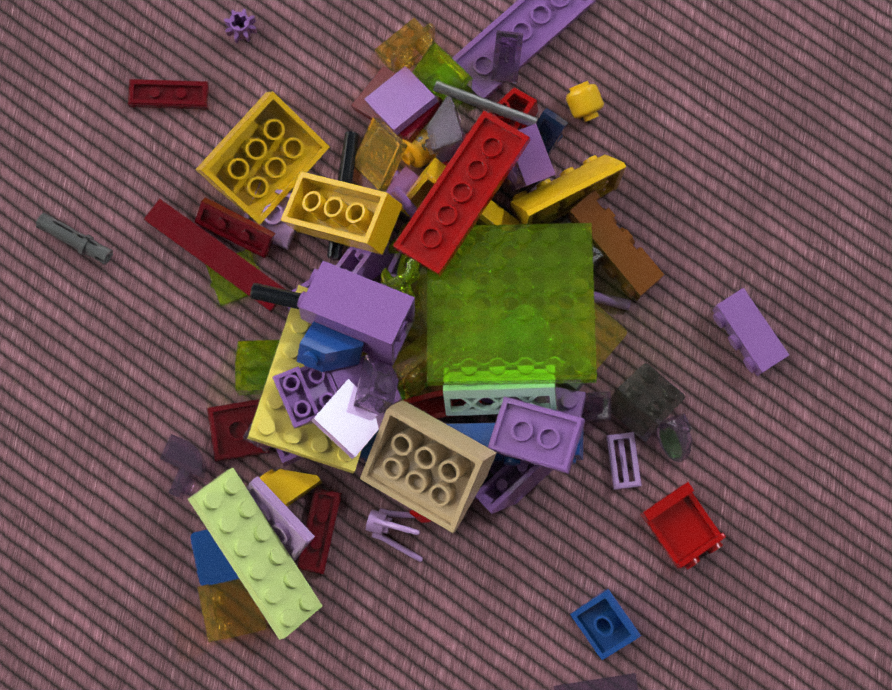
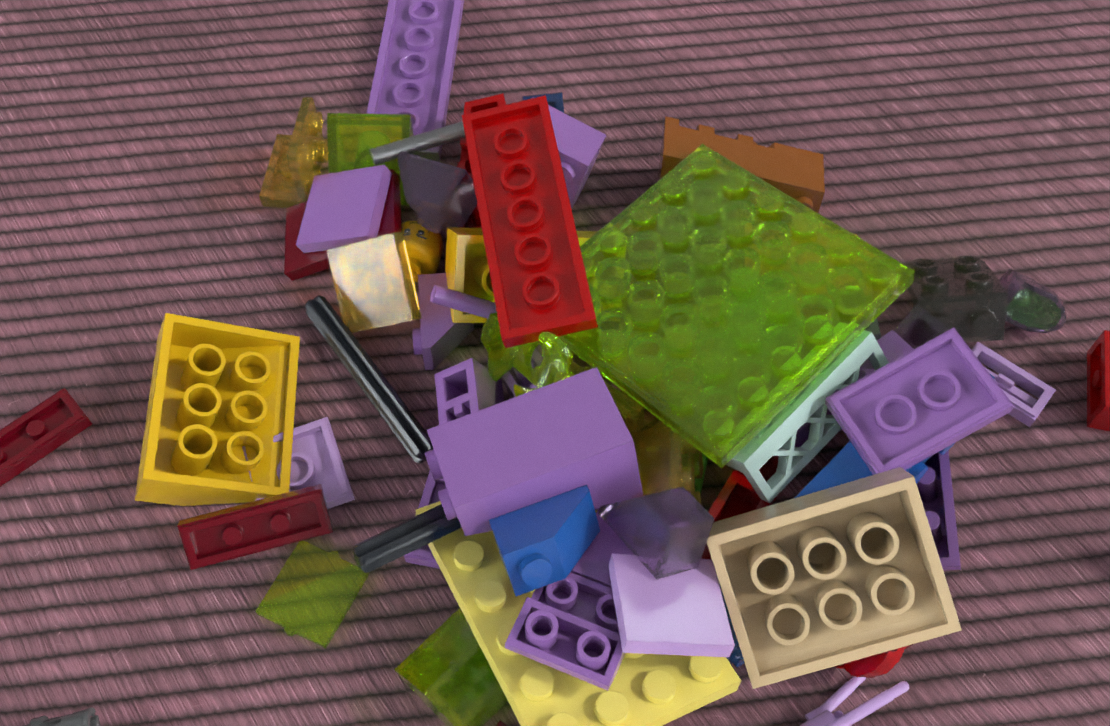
camera: 40 degrees left, 20 degrees down
(208, 250) = (247, 587): dark red tile -> none
(240, 18) = (57, 294): medium lavender gear -> none
(342, 212) = (390, 374): yellow brick -> none
(507, 56) = (423, 82): clear purple slope -> none
(559, 196) = (635, 150): yellow slope -> none
(584, 101) = (551, 73): yellow head -> none
(749, 332) = (965, 145): medium lavender brick -> none

